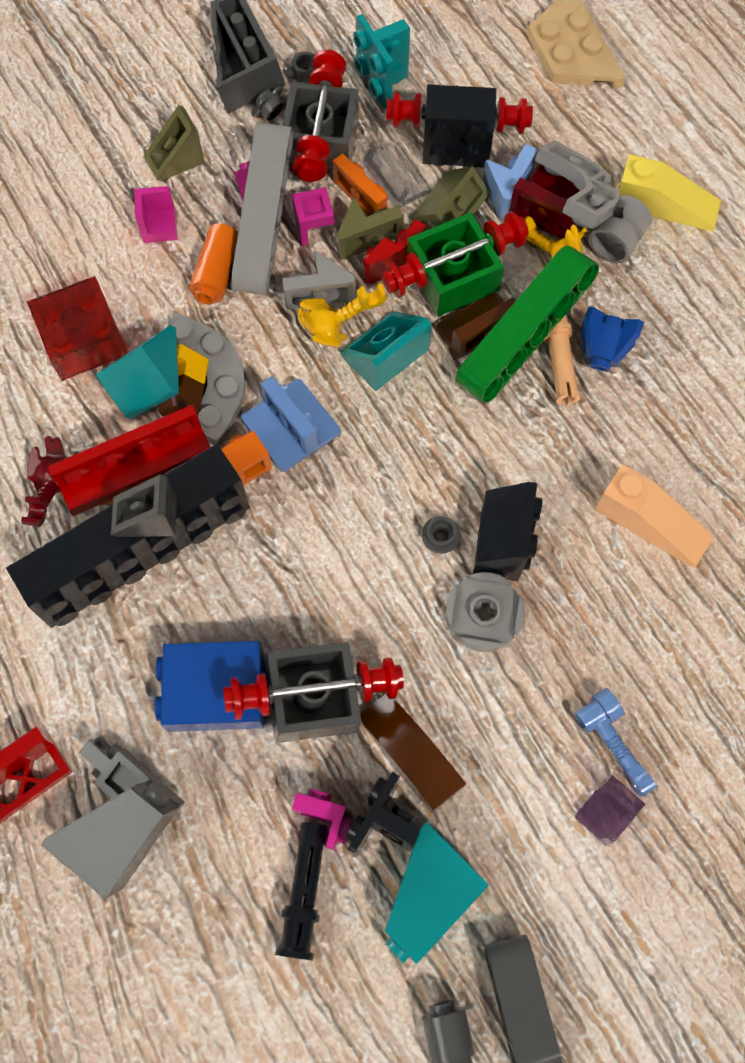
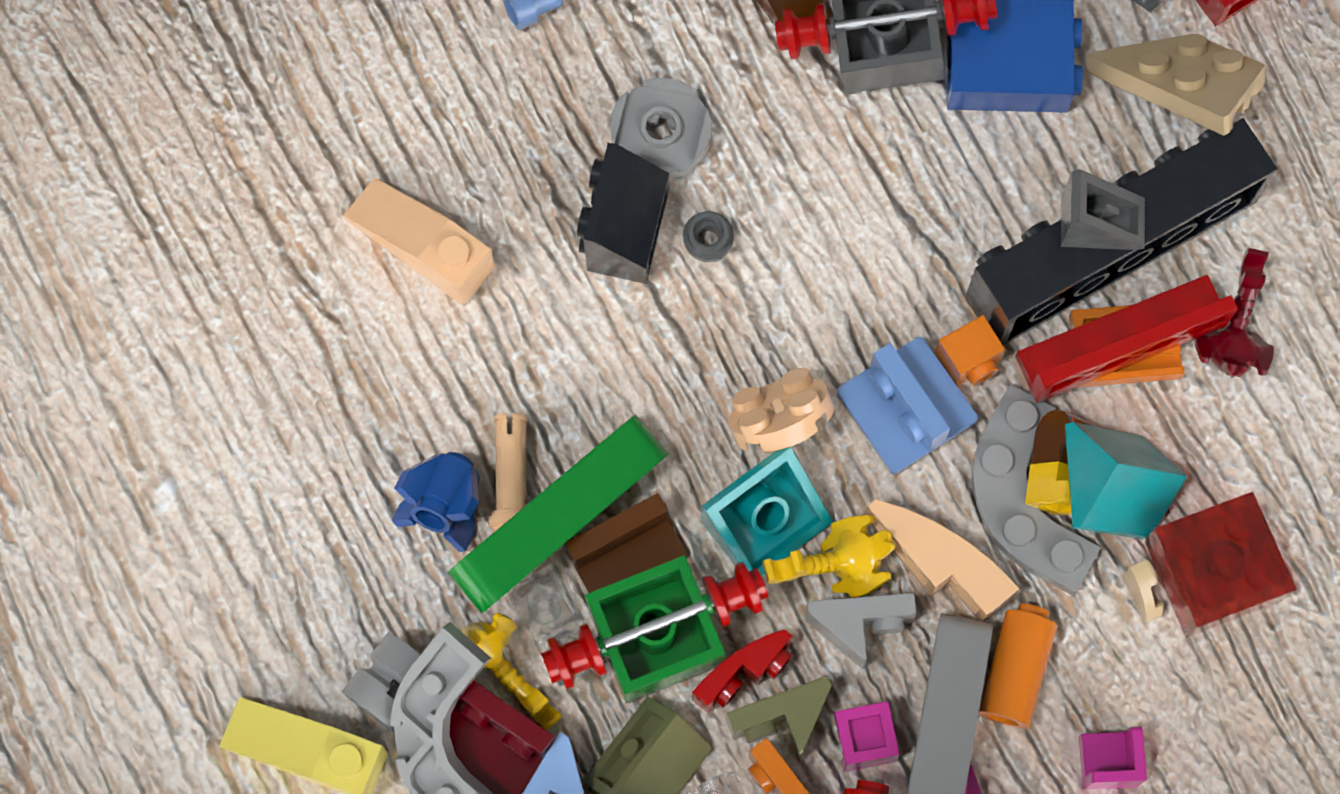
camera: 175 degrees left, 5 degrees up
(71, 661) = (1184, 77): none -> tan wing
(131, 318) = (1139, 581): none -> tan tile
(265, 324) = (943, 558): none -> light nougat slope
(396, 410) = (780, 411): none -> light nougat plate

